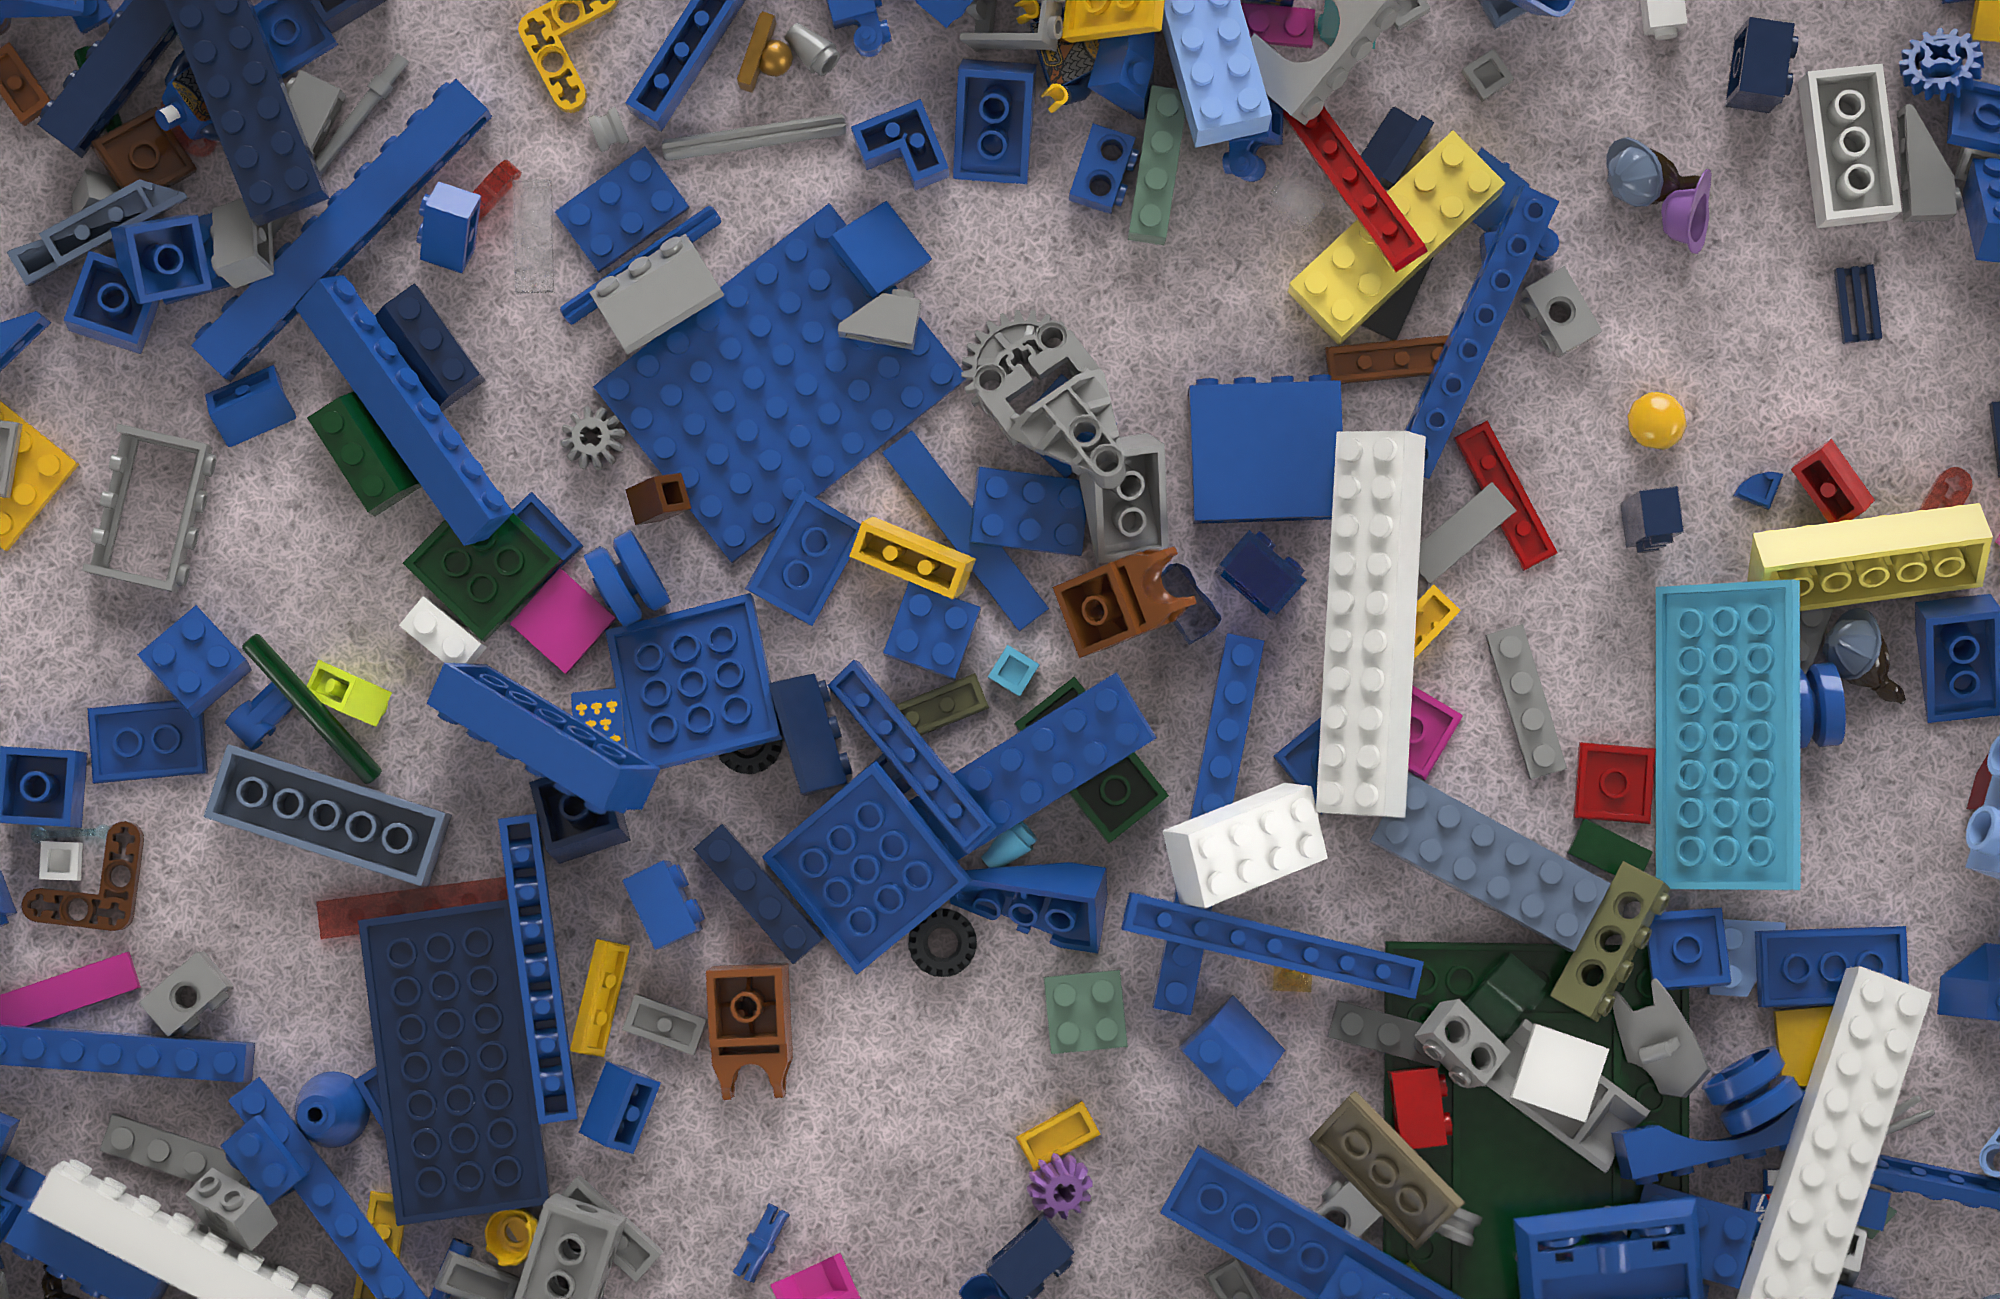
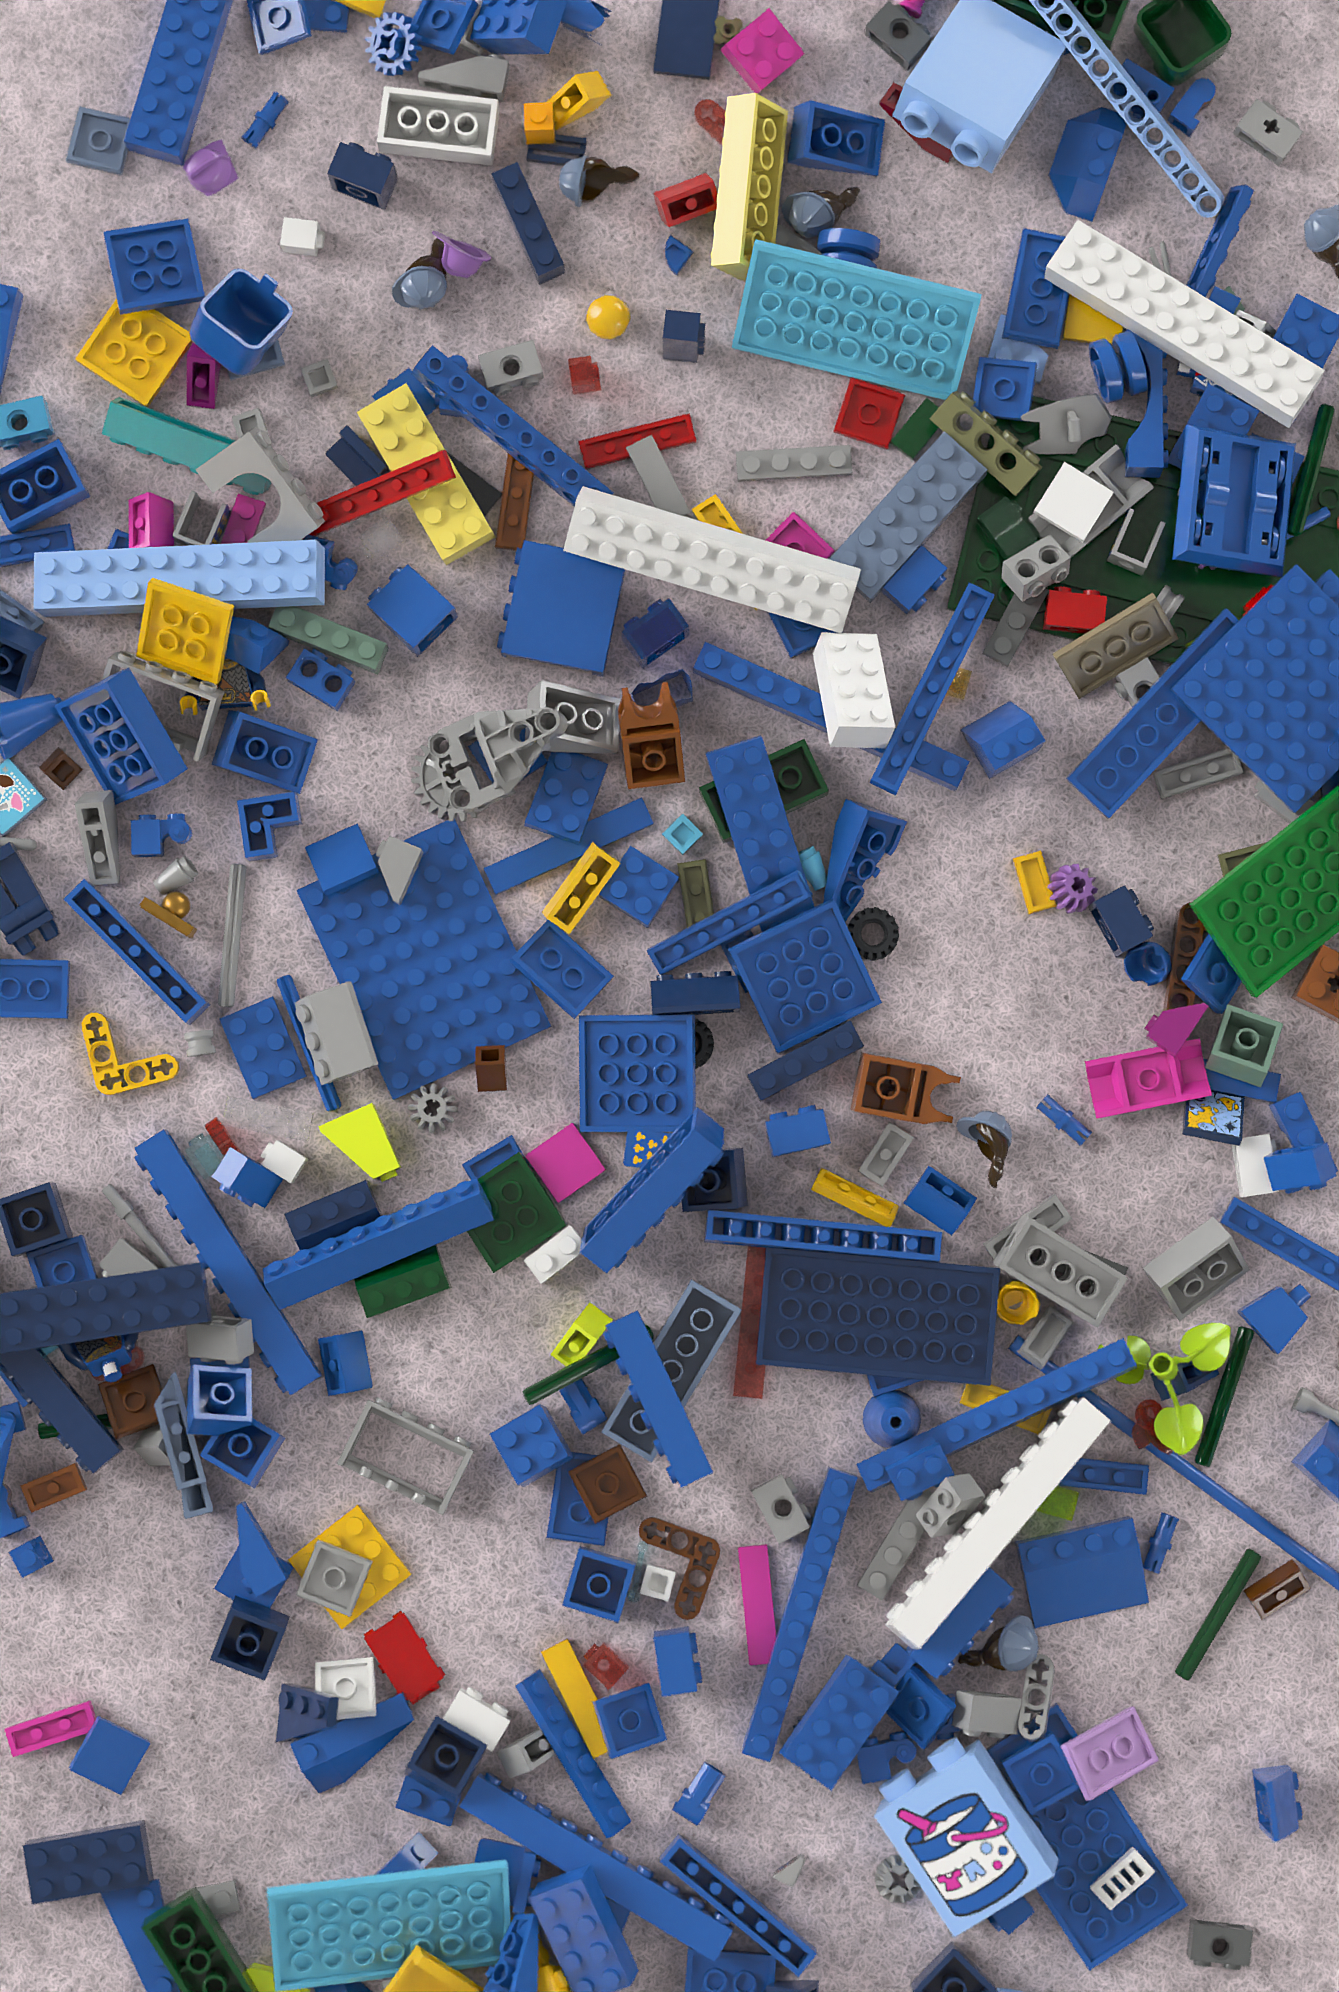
camera: 75 degrees left, 0 degrees up
(169, 768) = (607, 1483): none -> reddish brown tile
(282, 806) = (659, 1399): none -> blue brick
(467, 167) = (204, 1155): none -> clear light blue brick
(484, 268) = (283, 1161): none -> white brick
(530, 363) = (364, 1141): none -> neon yellow slope
(624, 580) = (546, 1103): blue wheel -> none
(712, 1159) = (993, 1139): none -> piece
(1085, 1011) = (948, 839): sand green brick -> none
(1218, 261) = (412, 609): none -> blue slope
(1410, 892) = (915, 580): none -> blue brick
(1499, 1158) = (1127, 562): none -> light grey piece
(1573, 407) = (584, 375): none -> clear red brick
(1752, 289) = (528, 223): none -> dark blue brick
(1831, 352) = (588, 177): none -> piece
(1885, 272) = (539, 123): none -> light orange brick
(1929, 313) = (578, 97): none -> yellow slope

